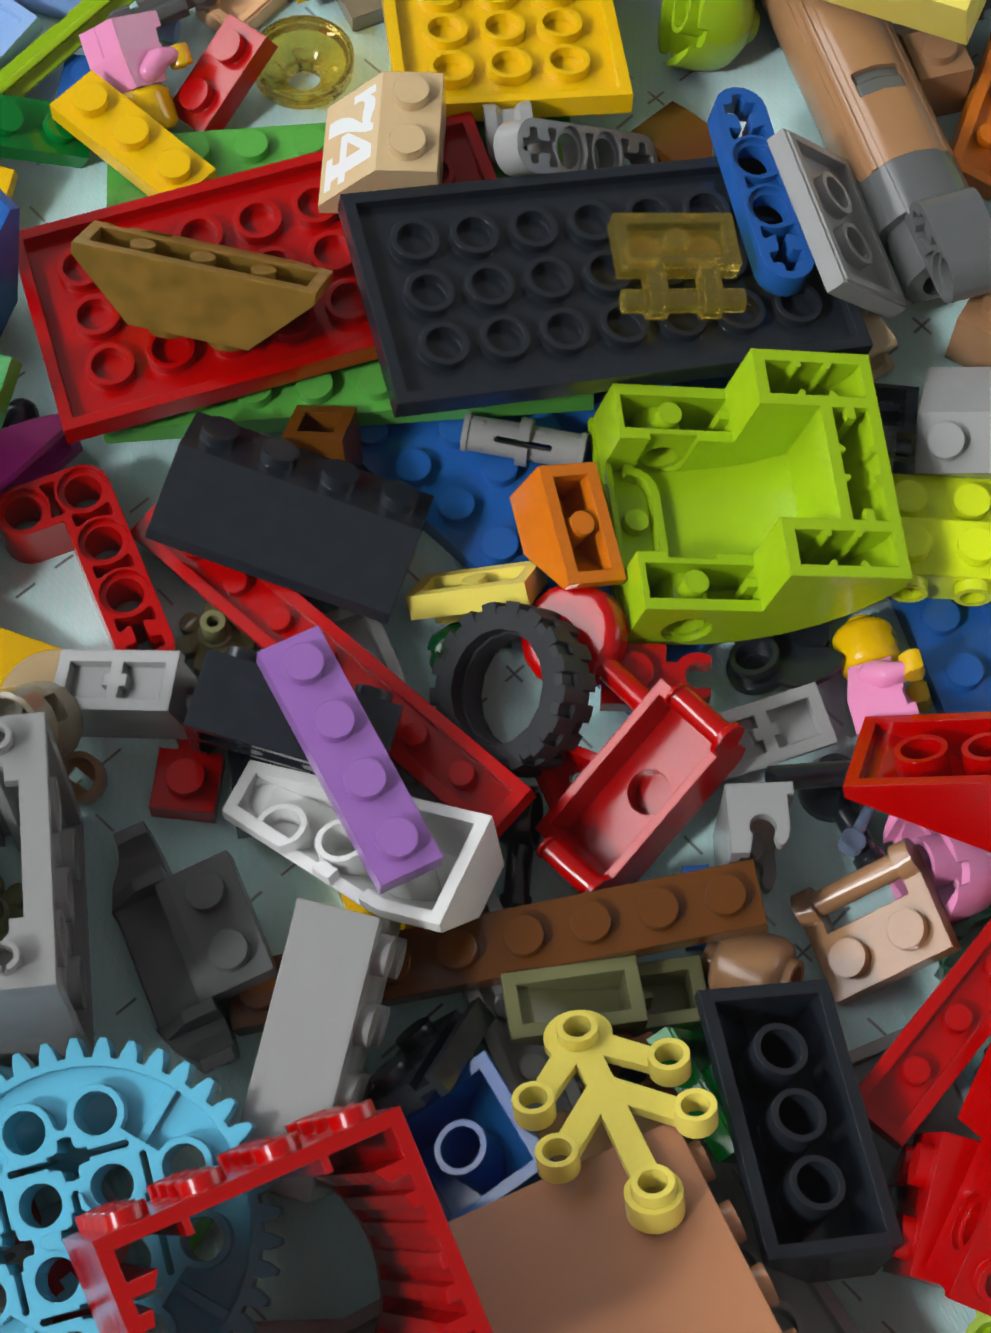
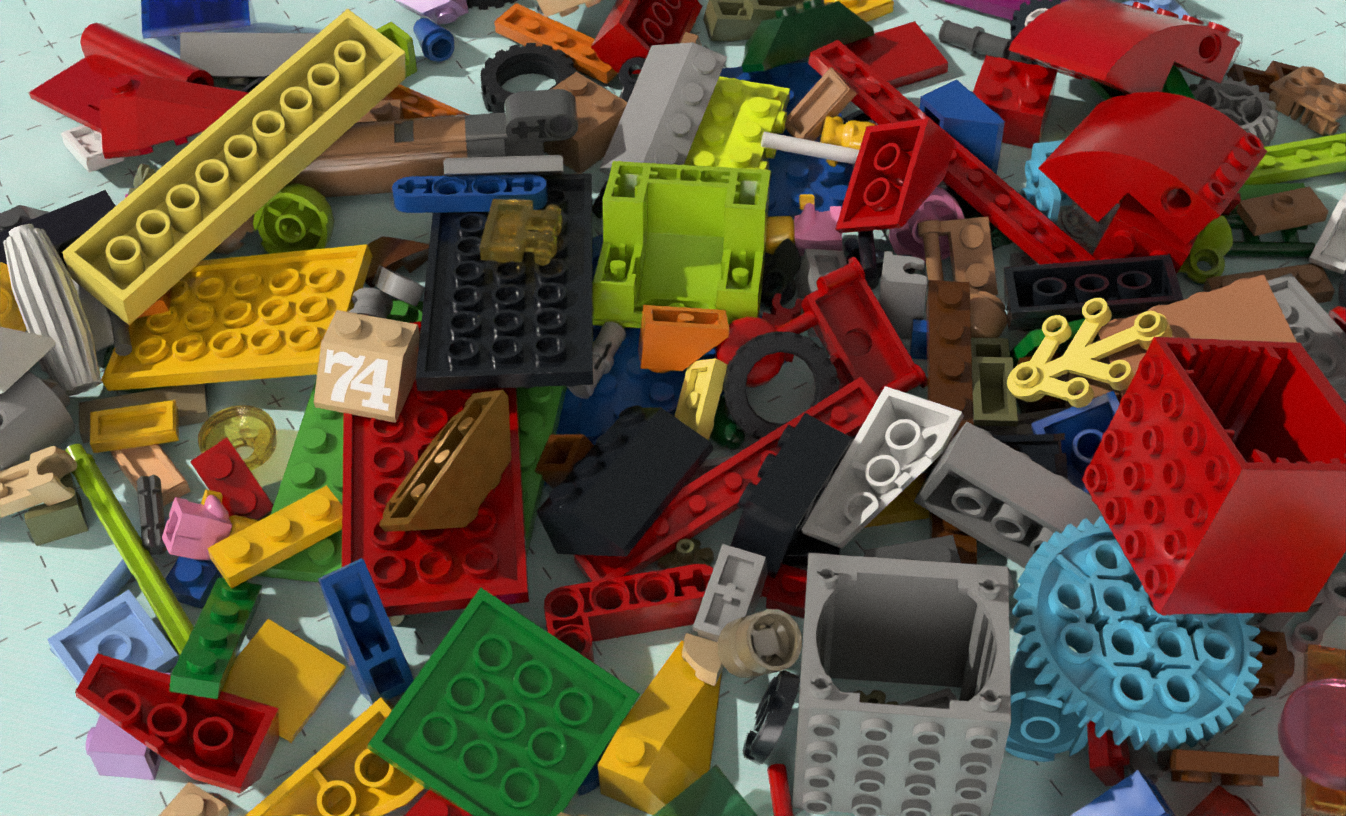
camera: 75 degrees left, 15 degrees down
(349, 760) = (841, 438): medium lavender plate -> none

